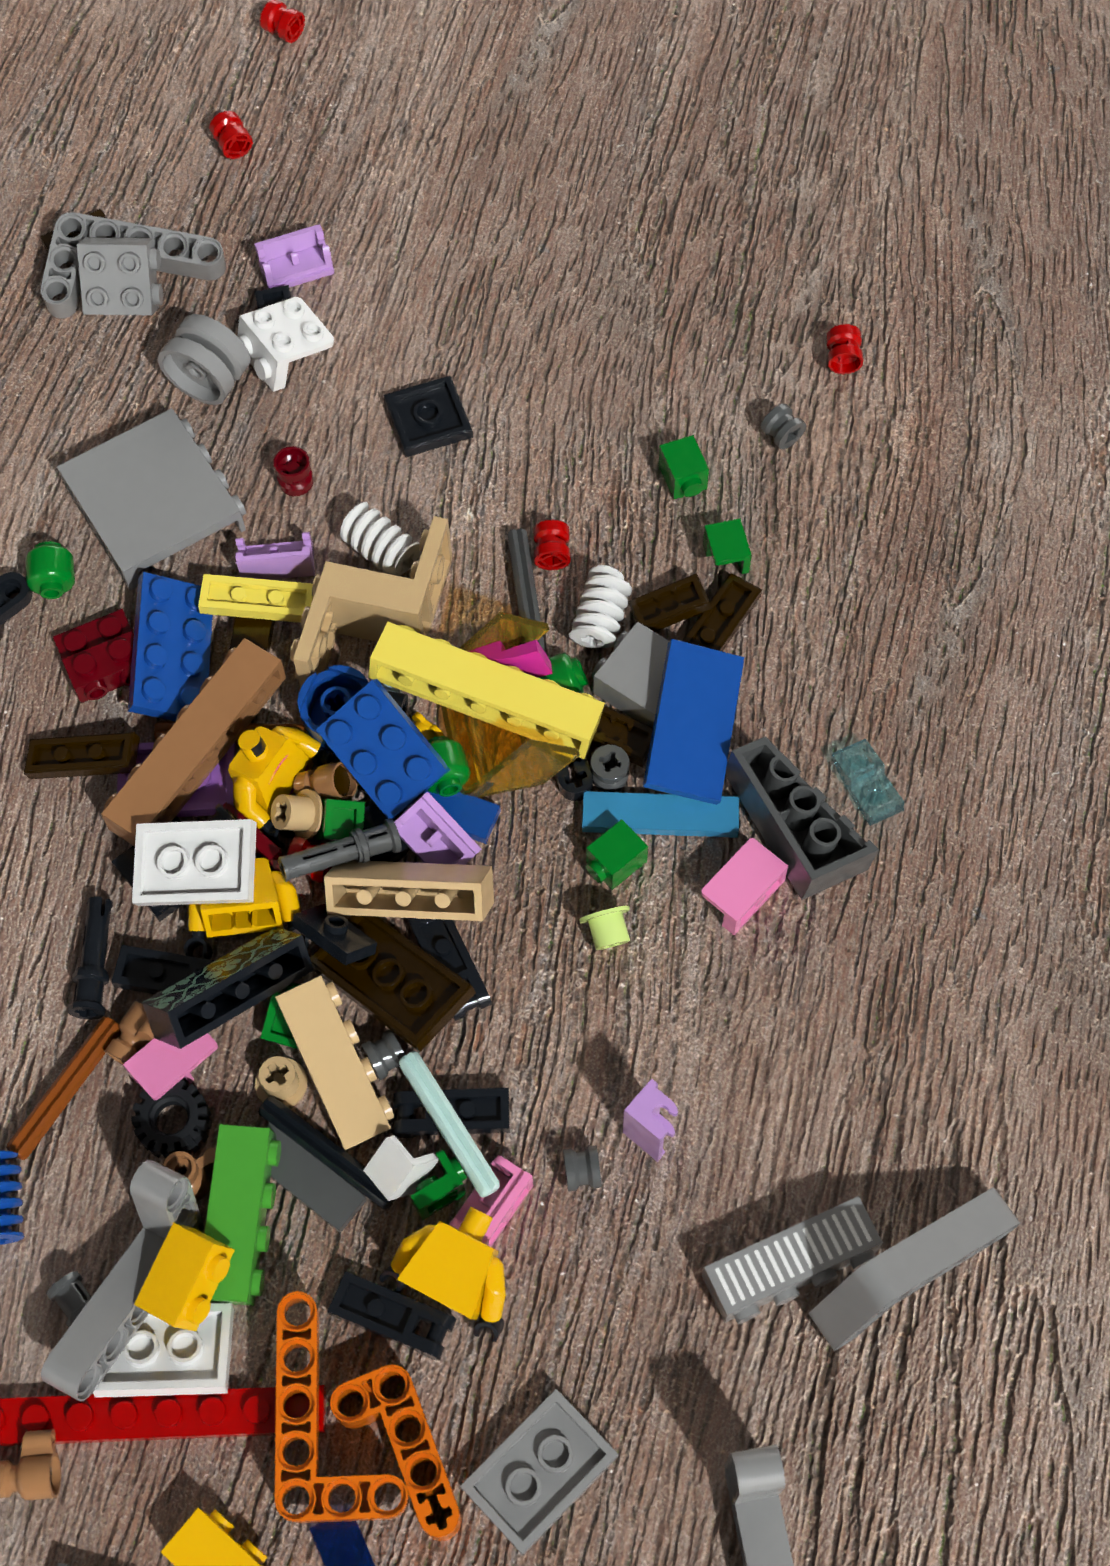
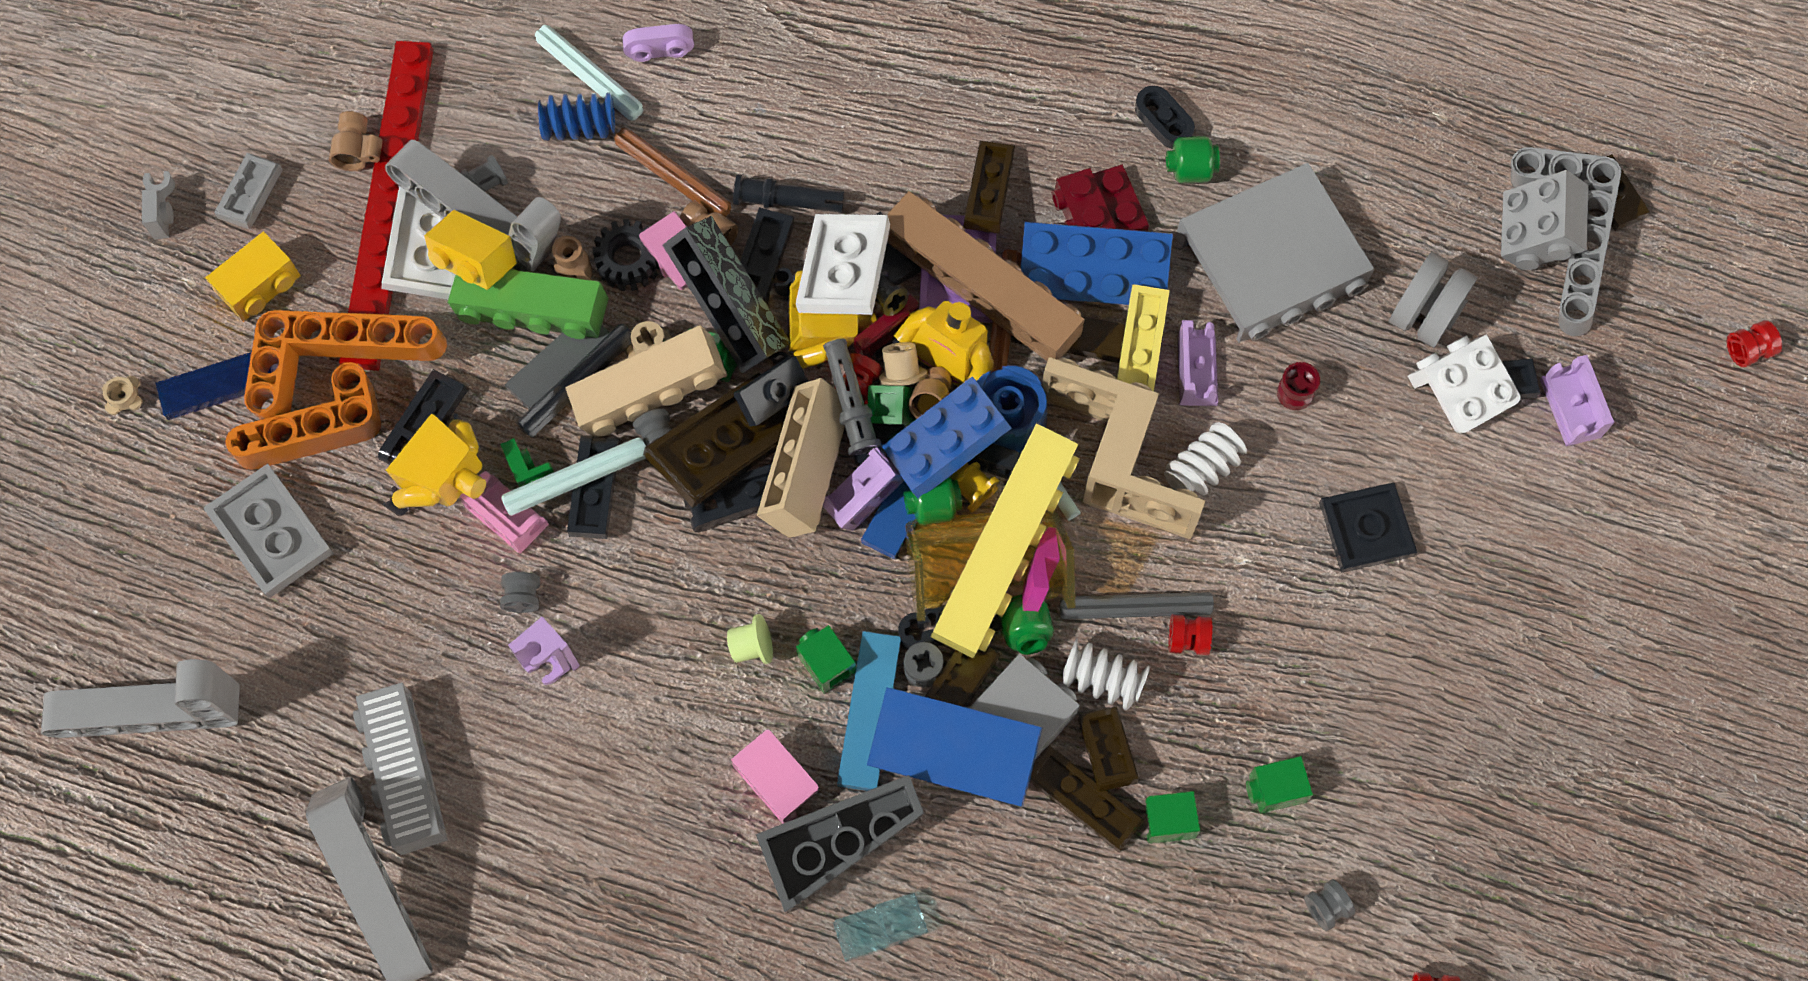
camera: 95 degrees right, 5 degrees up
(395, 1169) = (542, 431): white panel -> none

